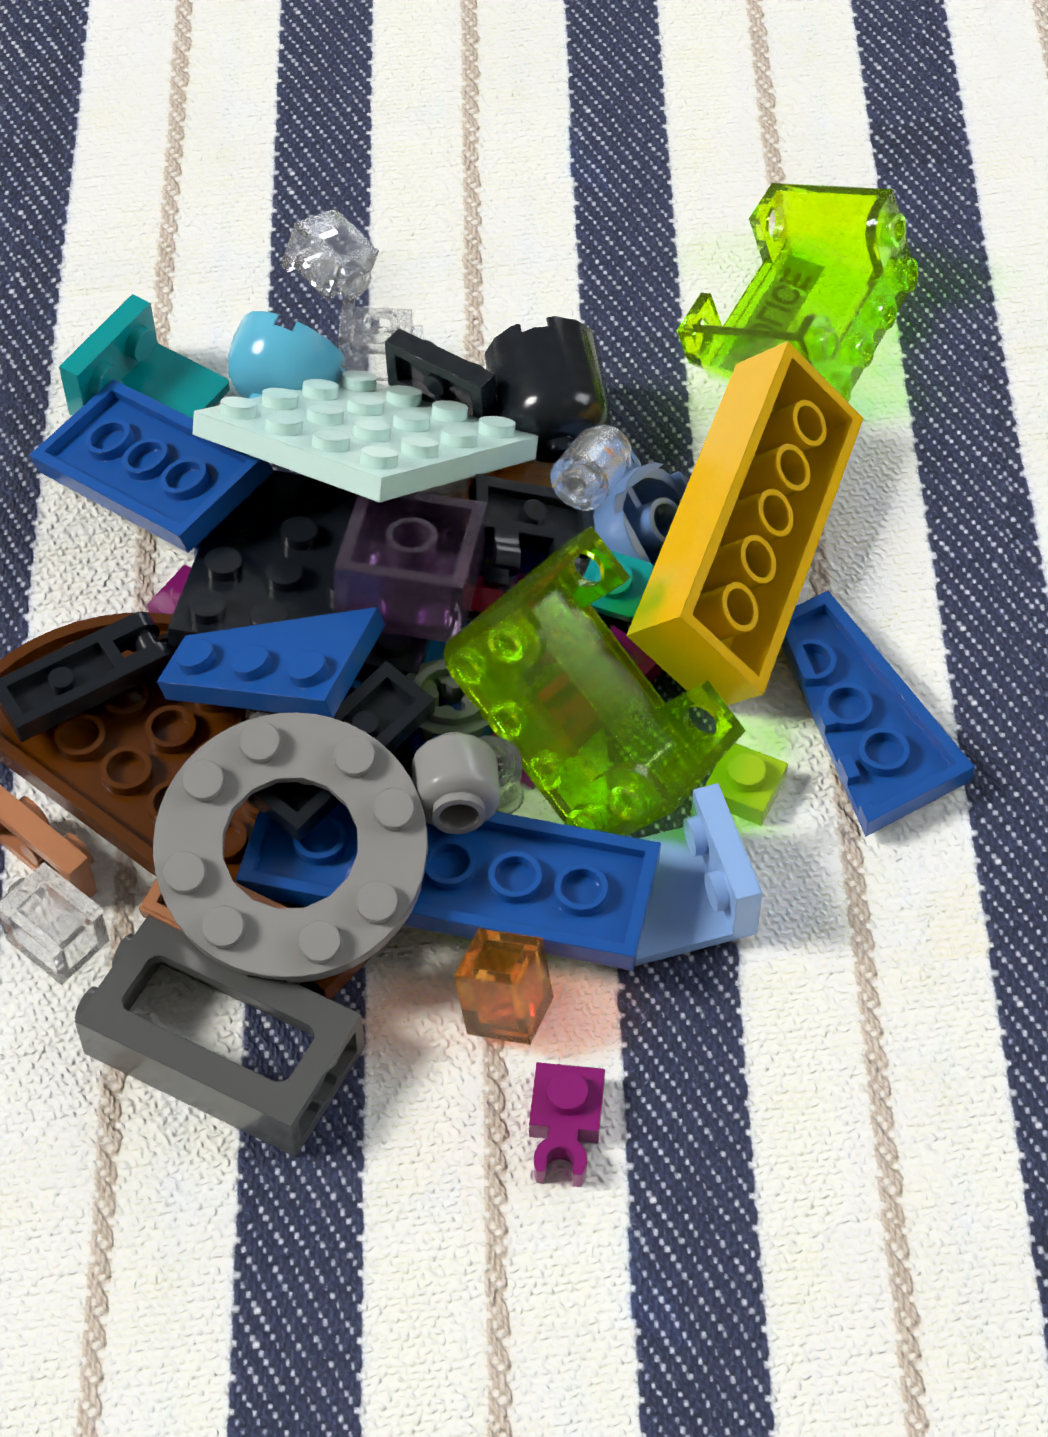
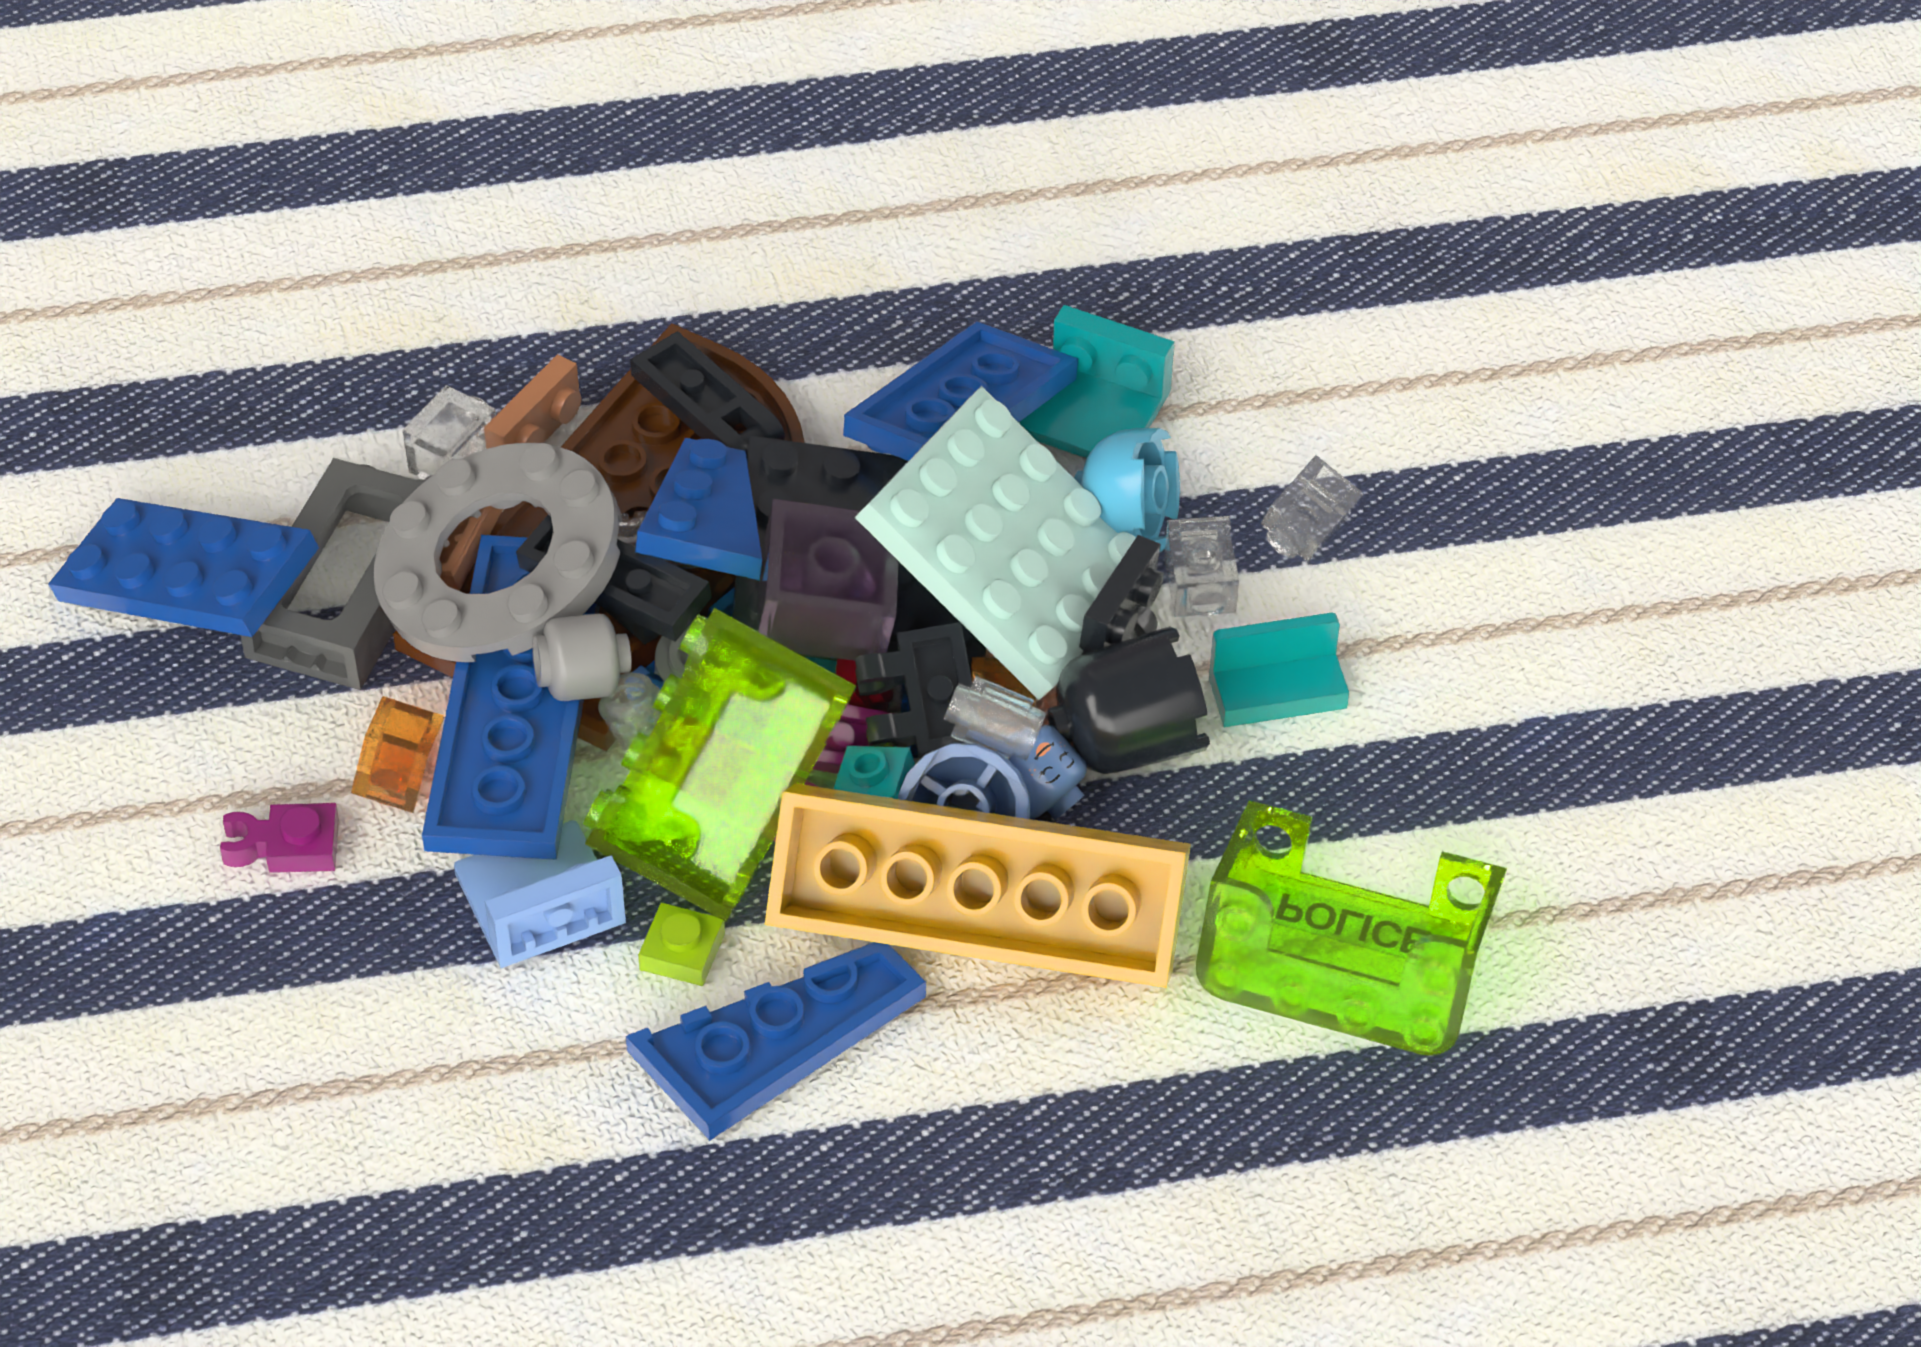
camera: 80 degrees right, 5 degrees down
(189, 1188) = (184, 566): none -> blue plate
(508, 296) = (1277, 670): none -> teal panel

